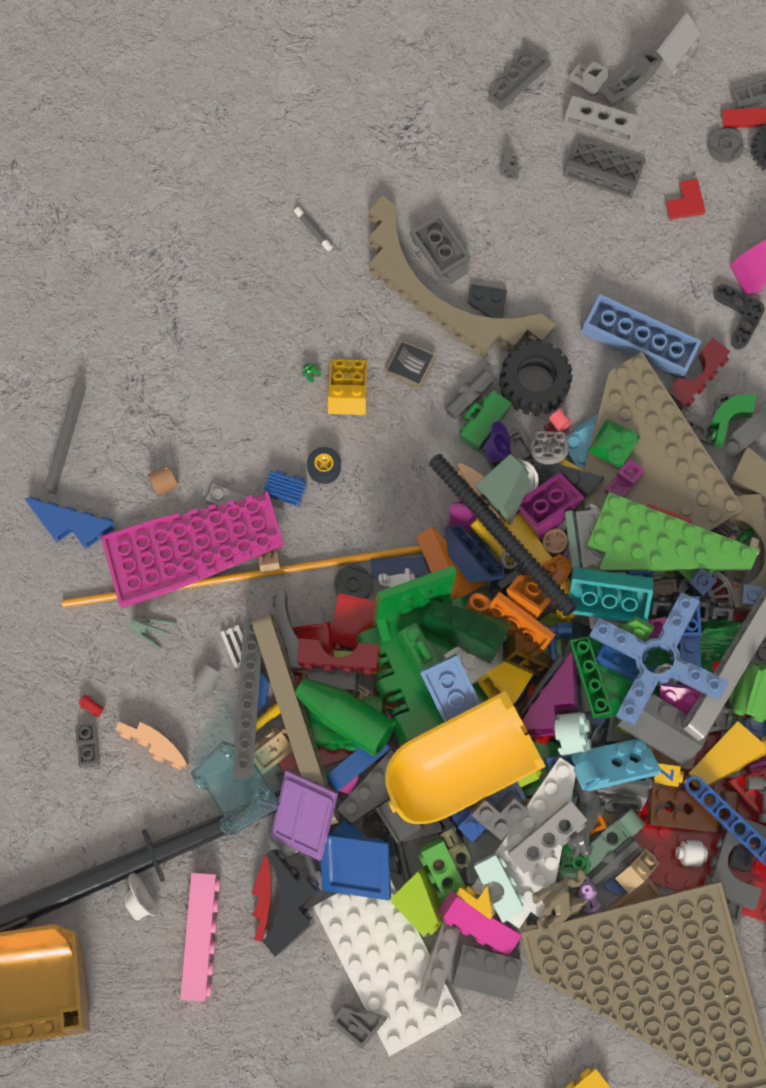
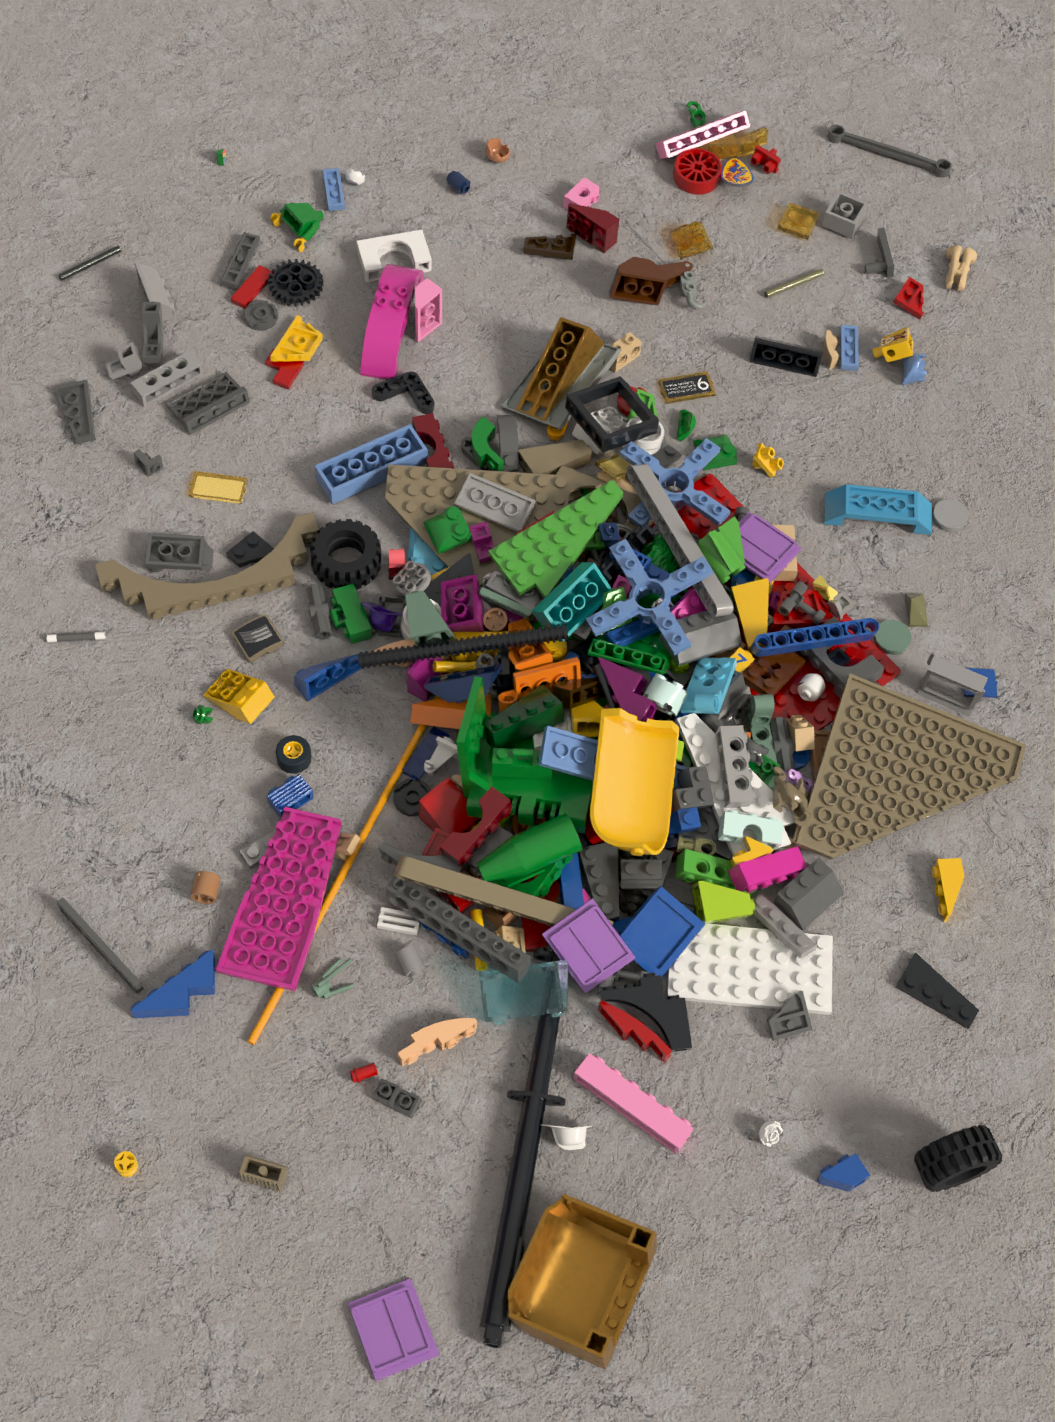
camera: 60 degrees left, 15 degrees down
(245, 1067) = (770, 1133): none -> white plate
(407, 437) = (323, 676): none -> blue wedge
(530, 233) = (218, 487): none -> clear yellow piece
(668, 464) = (494, 503): none -> light grey tile
(719, 194) = (298, 342): none -> yellow wing

